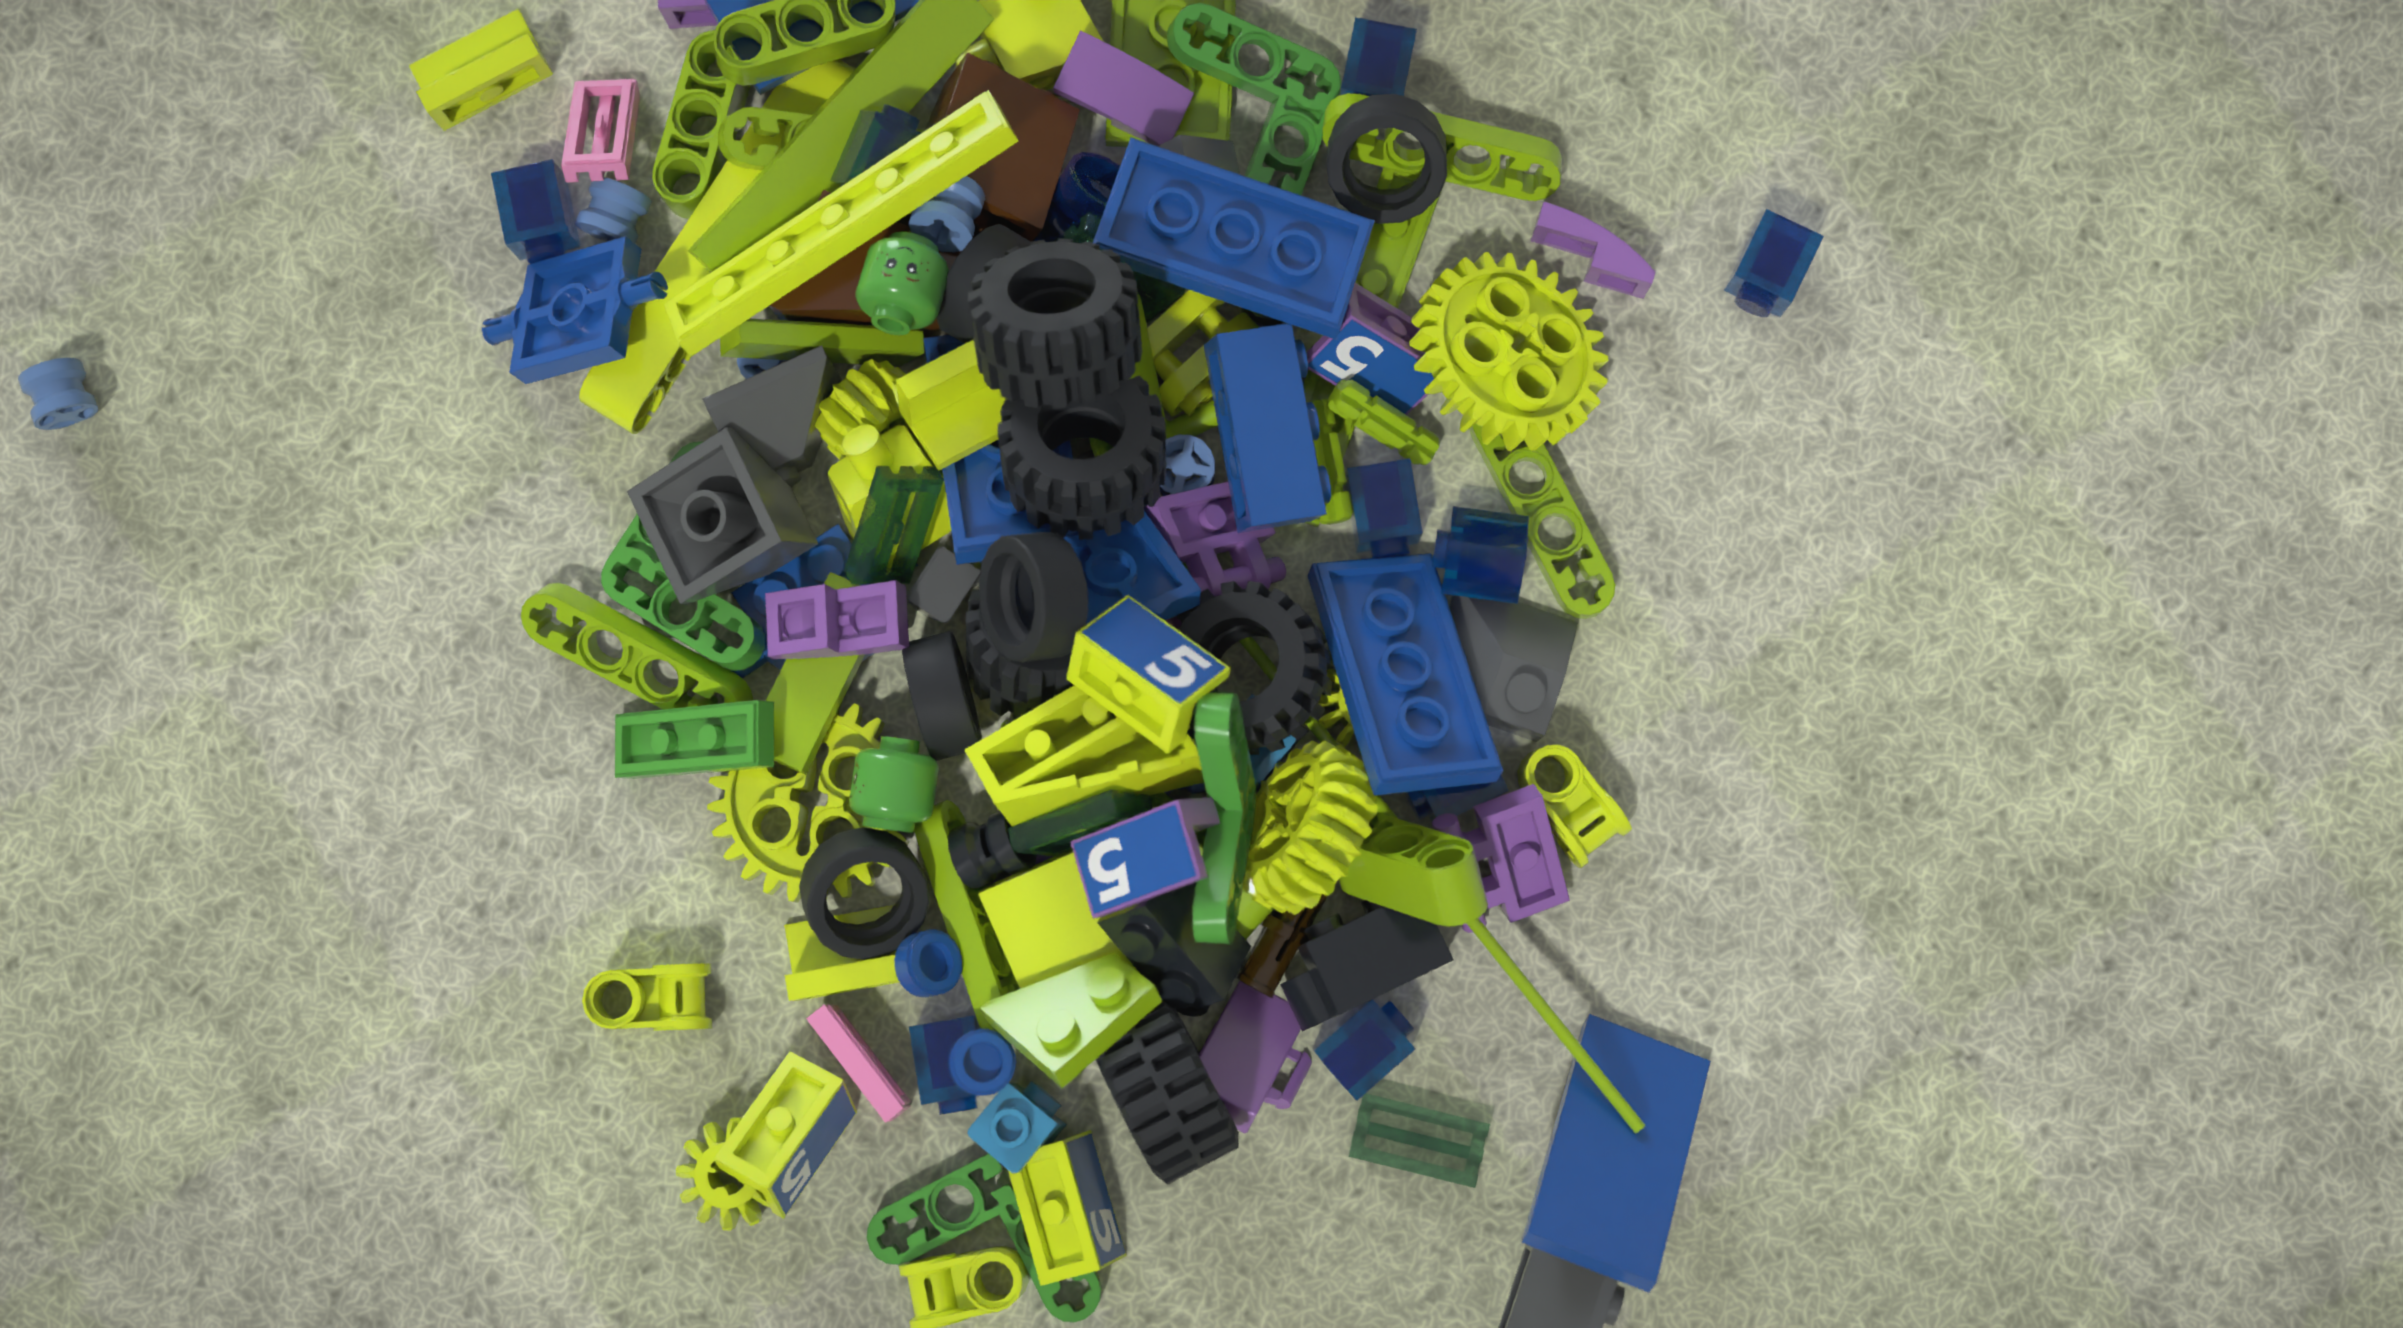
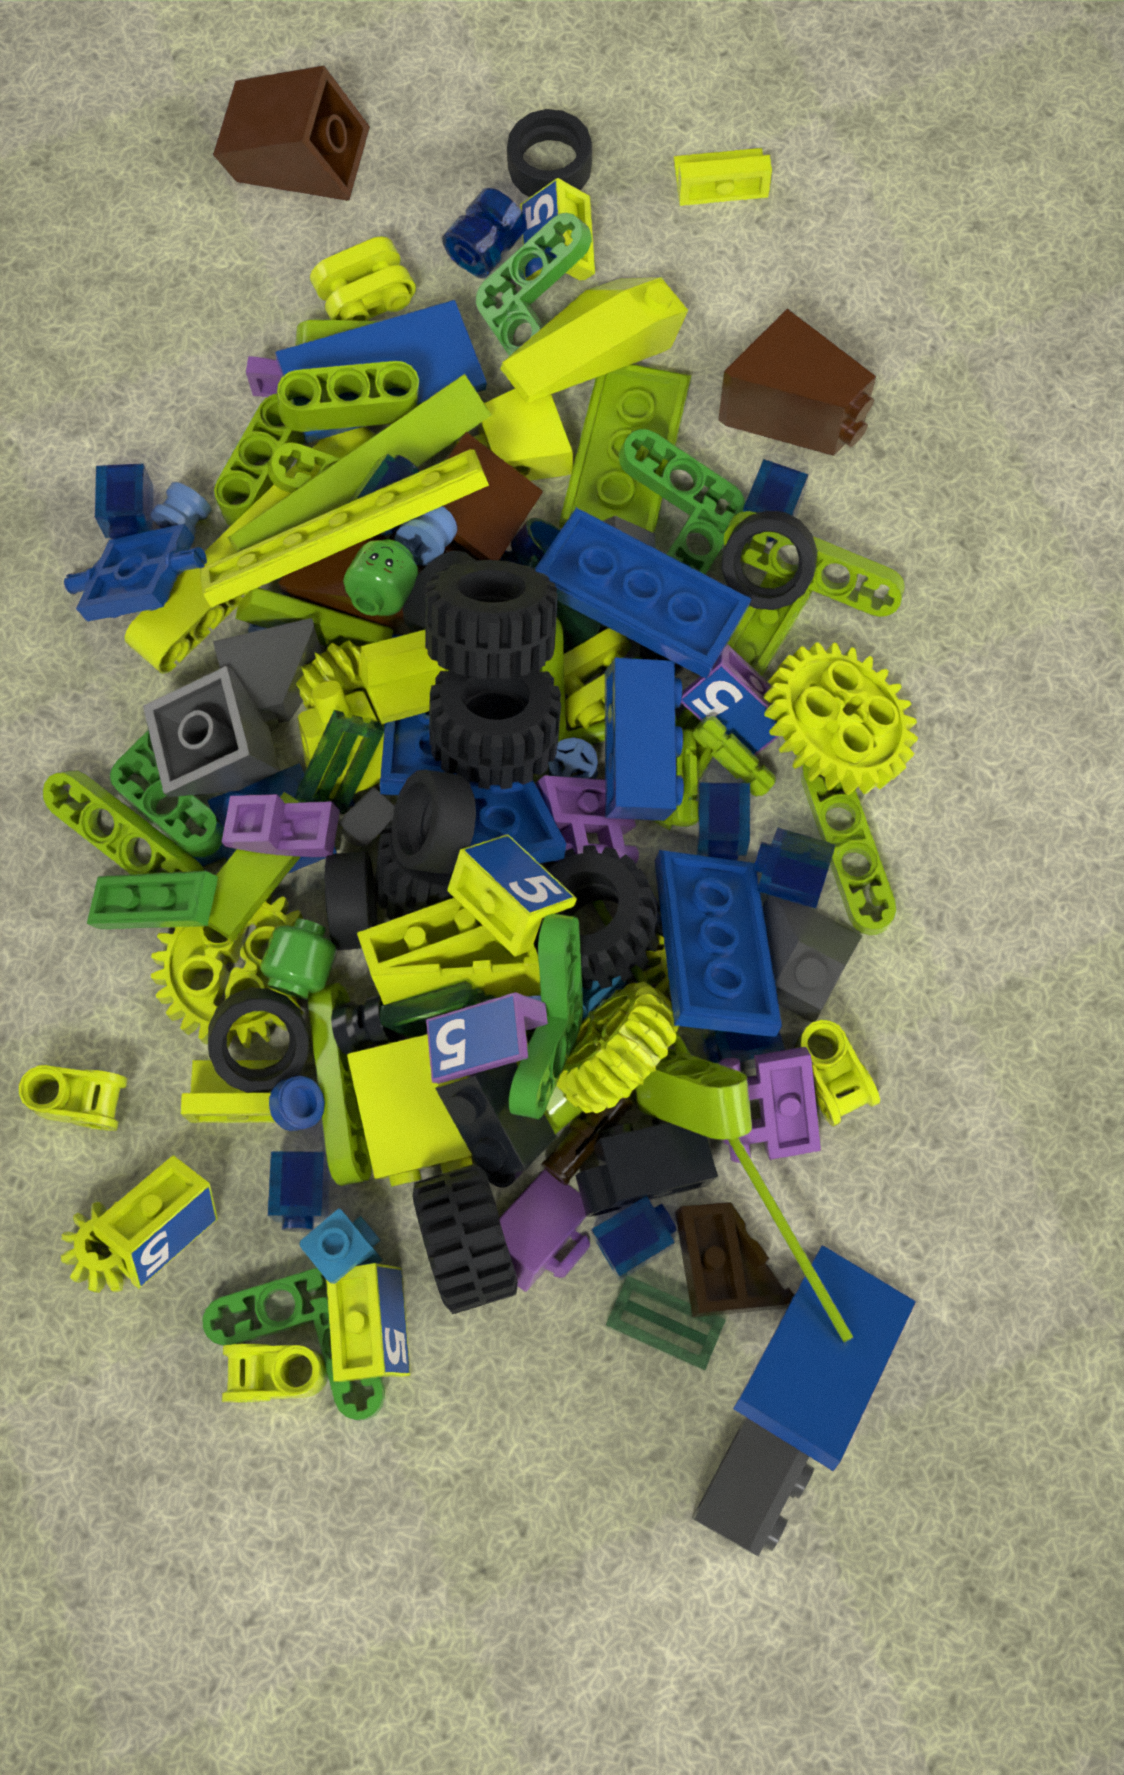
camera: 10 degrees right, 10 degrees down
(479, 70) = (107, 402): neon yellow panel -> none
(600, 160) = (193, 455): bright pink tile -> none
(859, 1061) = (227, 1176): bright pink tile -> none
(981, 1062) = (322, 1188): blue tile -> none
(1073, 1015) = (402, 1159): lime wing -> none
(1123, 90) = (577, 480): medium lavender slope -> none
(1478, 1058) = (724, 1264): none -> dark brown wing
(1611, 260) = (932, 667): medium lavender slope -> none
(1772, 265) = (1056, 690): clear blue brick -> none

